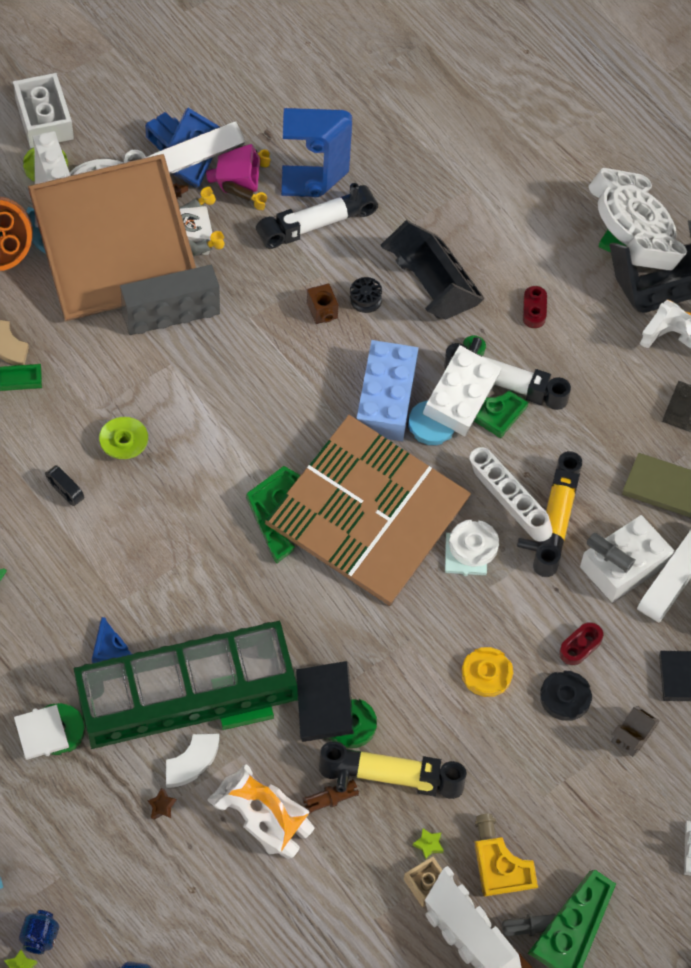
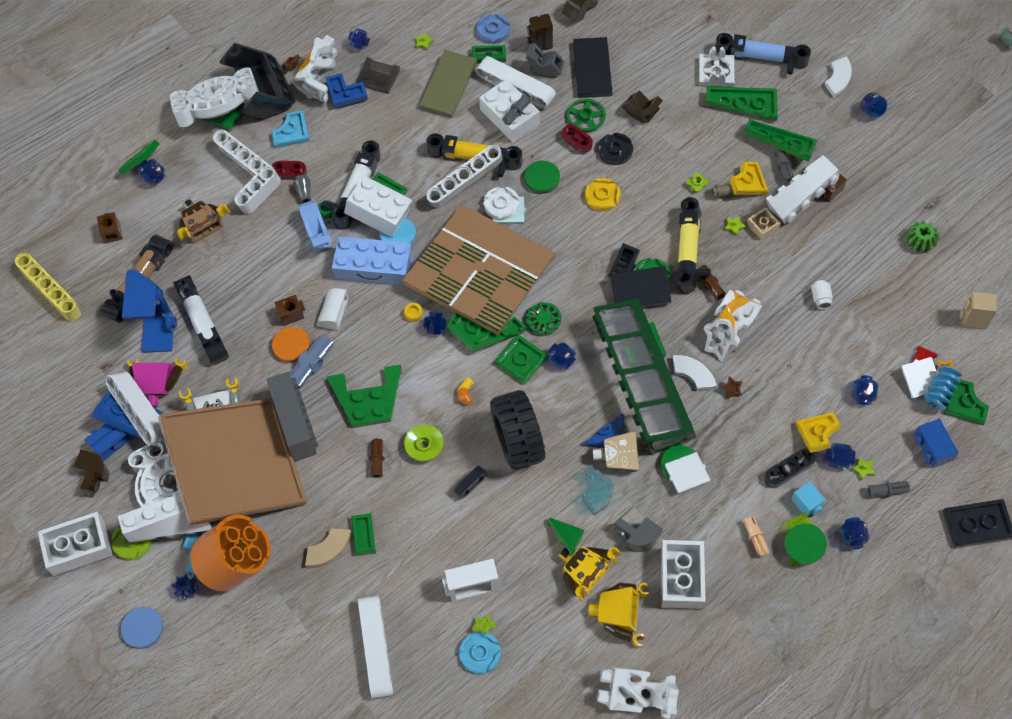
camera: 85 degrees left, 5 degrees up
(22, 860) = (793, 459): none -> black beam
(30, 629) = (600, 493): none -> clear light blue brick
(75, 648) = (619, 452): none -> tan torso
(82, 906) = (817, 430): none -> yellow tile
(111, 391) = (376, 458): none -> reddish brown axle
(111, 521) = (517, 429): none -> black tyre
(129, 126) = (93, 469): none -> dark brown brick
(186, 385) = (370, 404): none -> green wing
(194, 485) = (462, 391): none -> orange arm
(229, 597) = (561, 356): none -> clear blue head
(233, 554) = (521, 359): none -> green tile
(249, 324) = (311, 360): none -> sand blue piece
(277, 308) = (290, 343): none -> orange tile
(290, 454) = (434, 323): none -> clear blue gear
(291, 583) = (543, 318): none -> green wheel
(298, 946) = (822, 294): none -> white brick
(313, 437) = (413, 312): none -> yellow tile
(321, 350) = (333, 309): none -> white brick
(366, 295) = (279, 282): black wheel -> none
(371, 74) = (40, 280): none -> light yellow beam
(386, 694) = (629, 250): none -> black slope
(402, 166) = (150, 260): none -> black piece
(435, 268) = (263, 230): black windscreen -> none
(441, 331) = (314, 225): none -> light blue arch
(451, 127) = (111, 233): none -> reddish brown brick
(455, 210) = (200, 220): none -> torso
(503, 319) = (303, 188): none -> dark grey cone
(503, 805) = (697, 186): none -> lime plate
(518, 596) = (542, 176): none -> green tile
(521, 275) = (265, 176): none -> white beam
(528, 163) = (151, 171): none -> clear blue head
(549, 149) = (140, 156): none -> green tile
(596, 311) = (292, 131): none -> medium azure tile
(626, 662) = (586, 115): none -> green wheel
(651, 888) = (749, 101): none -> green wing
(655, 366) = (343, 94): none -> blue plate

